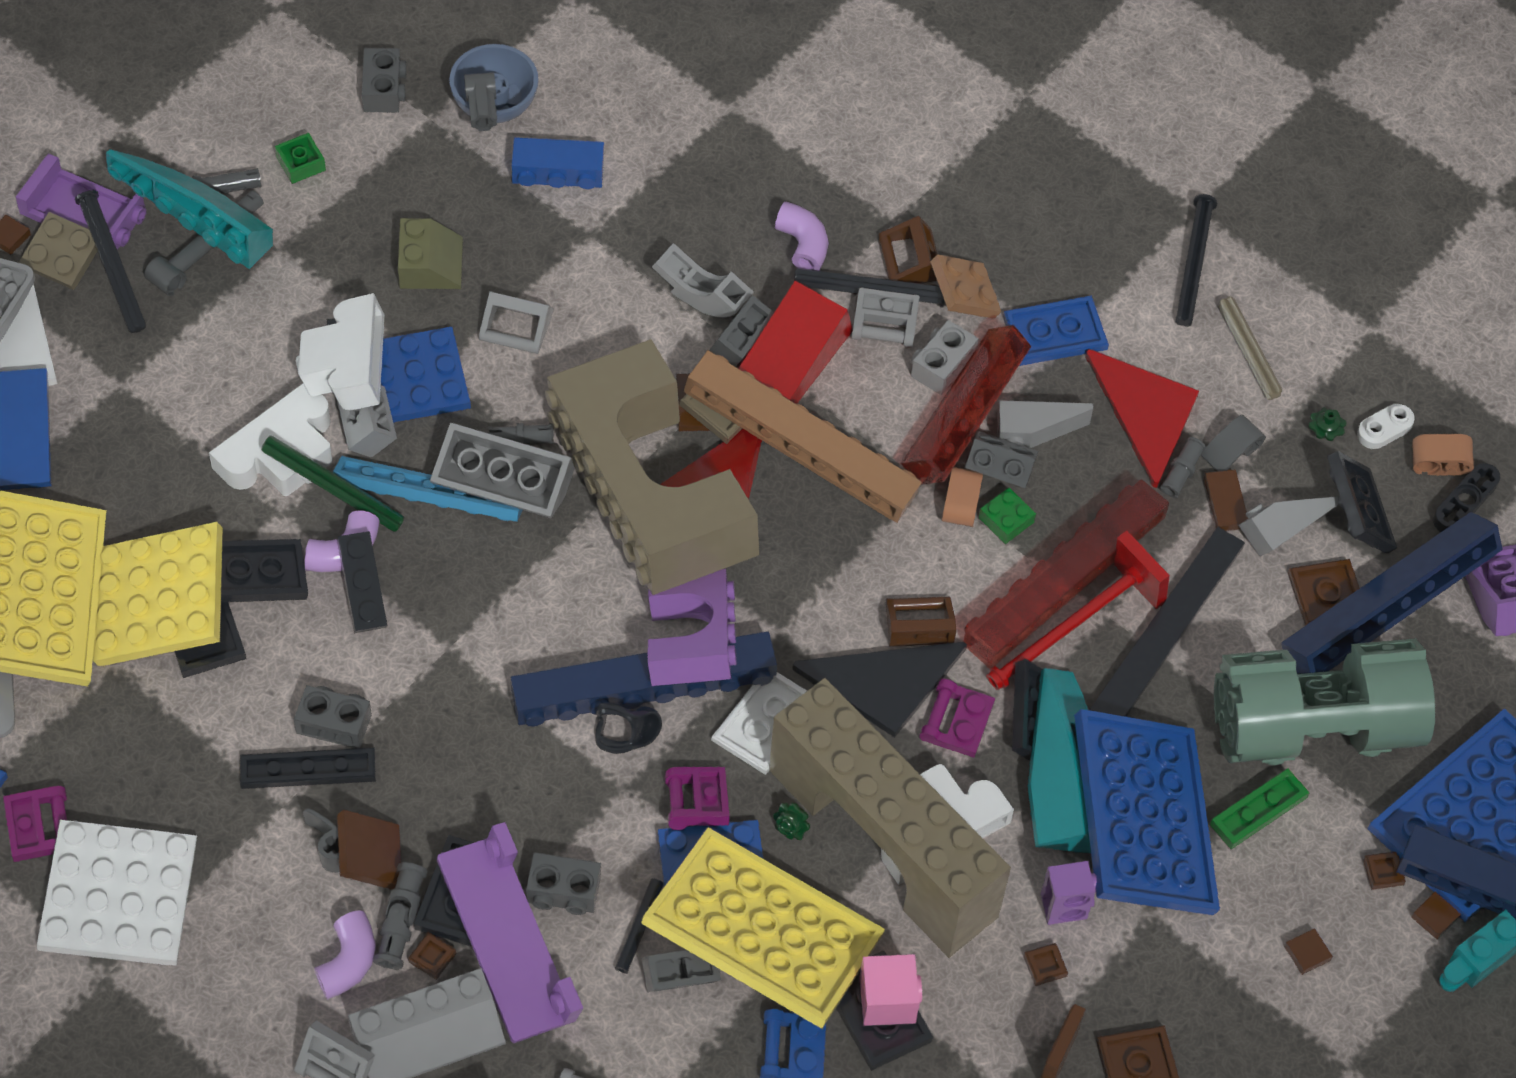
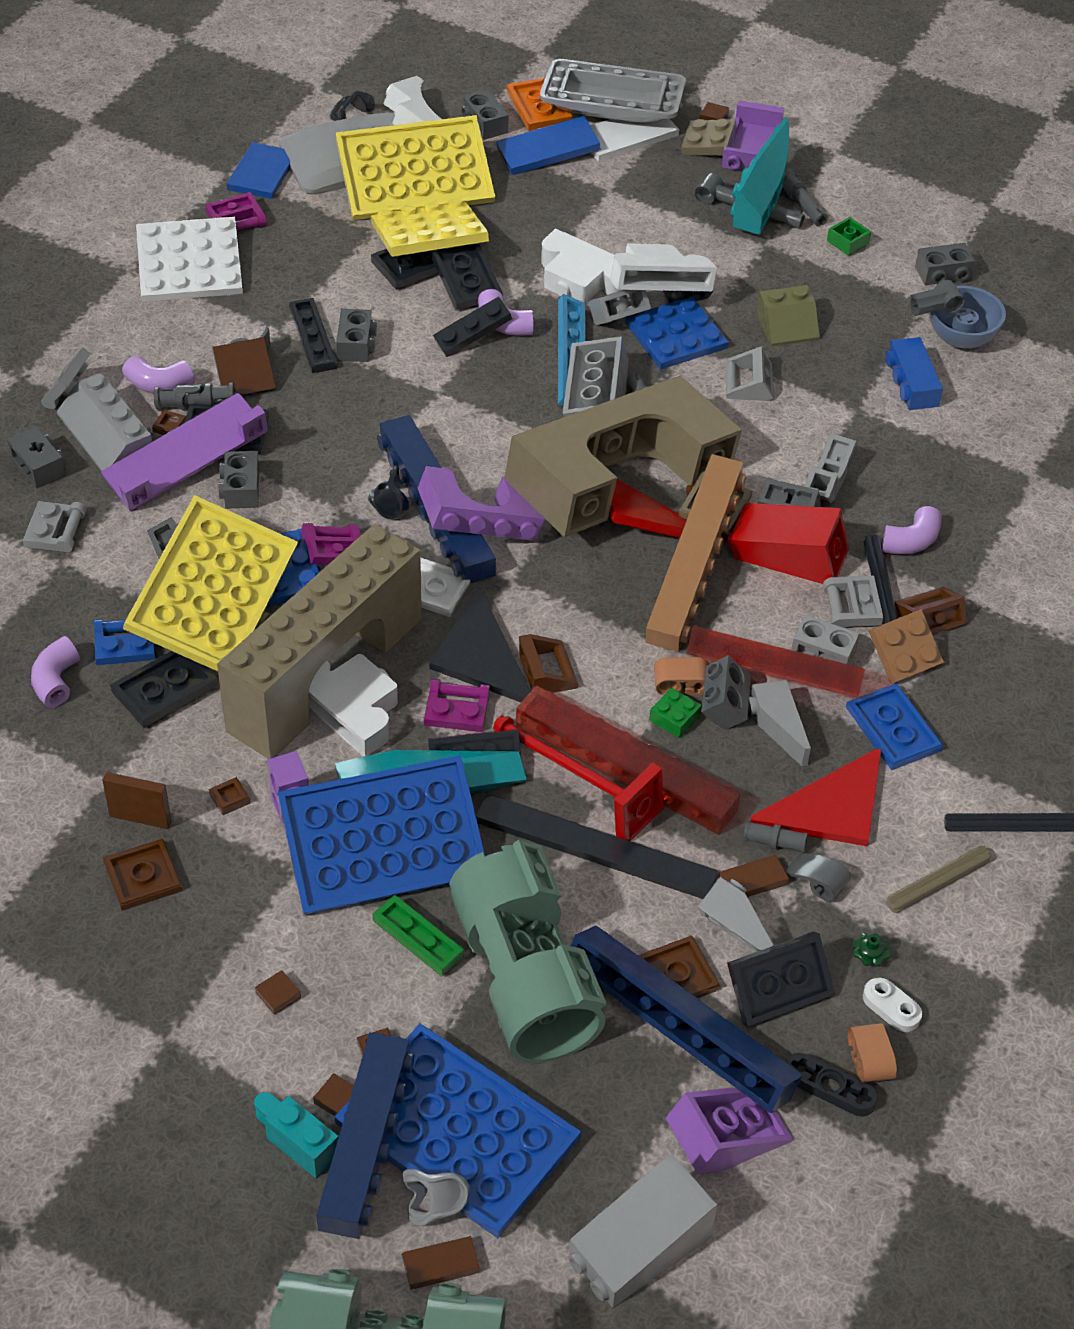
camera: 80 degrees right, 10 degrees down
(111, 260) = (704, 155): black axle -> none
(331, 482) = (551, 295): dark green axle -> none
(890, 989) = (169, 671): bright pink head -> none

